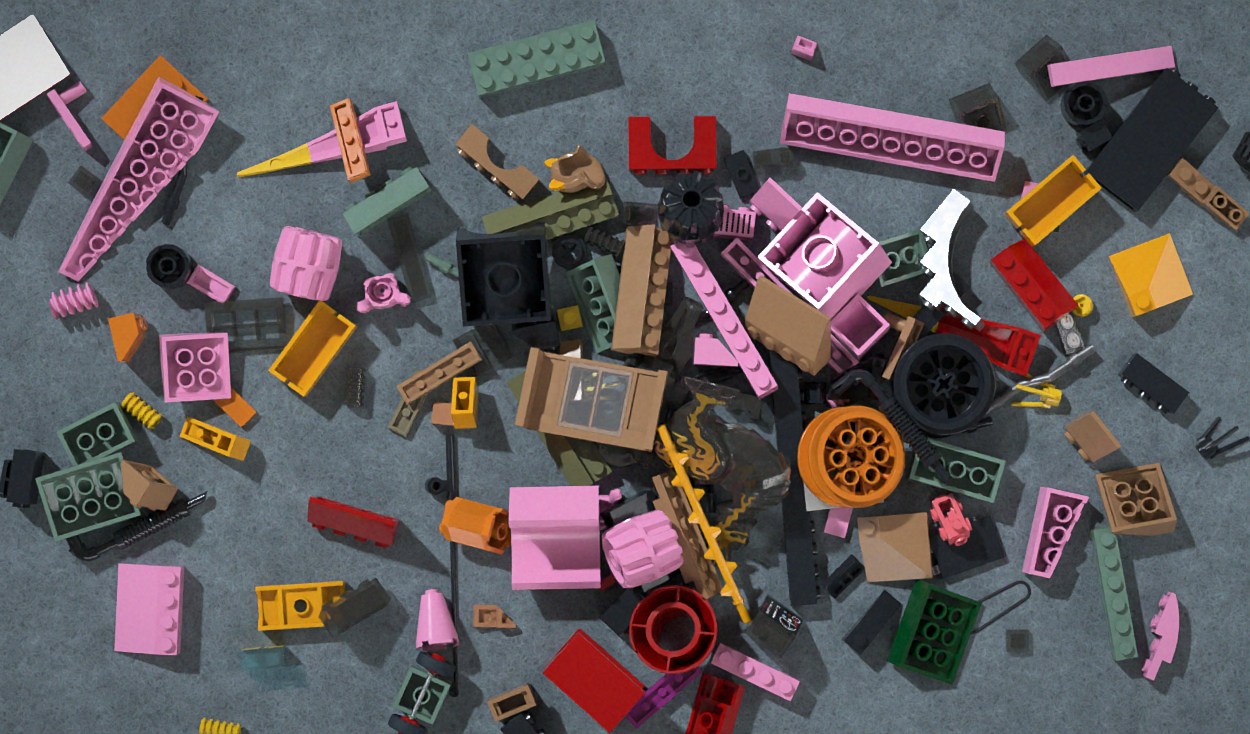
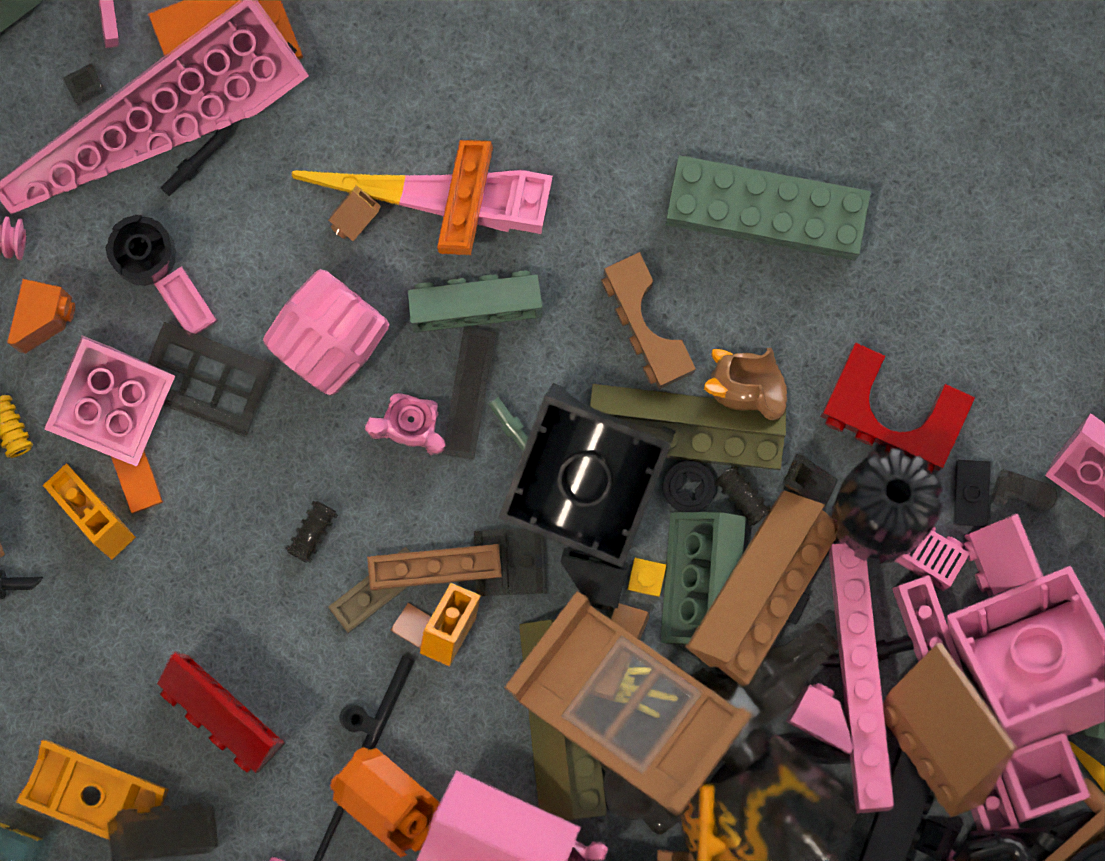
camera: 20 degrees right, 5 degrees down
(287, 182) = (353, 214): none -> medium nougat brick
(312, 348) = (279, 452): light orange piece -> none

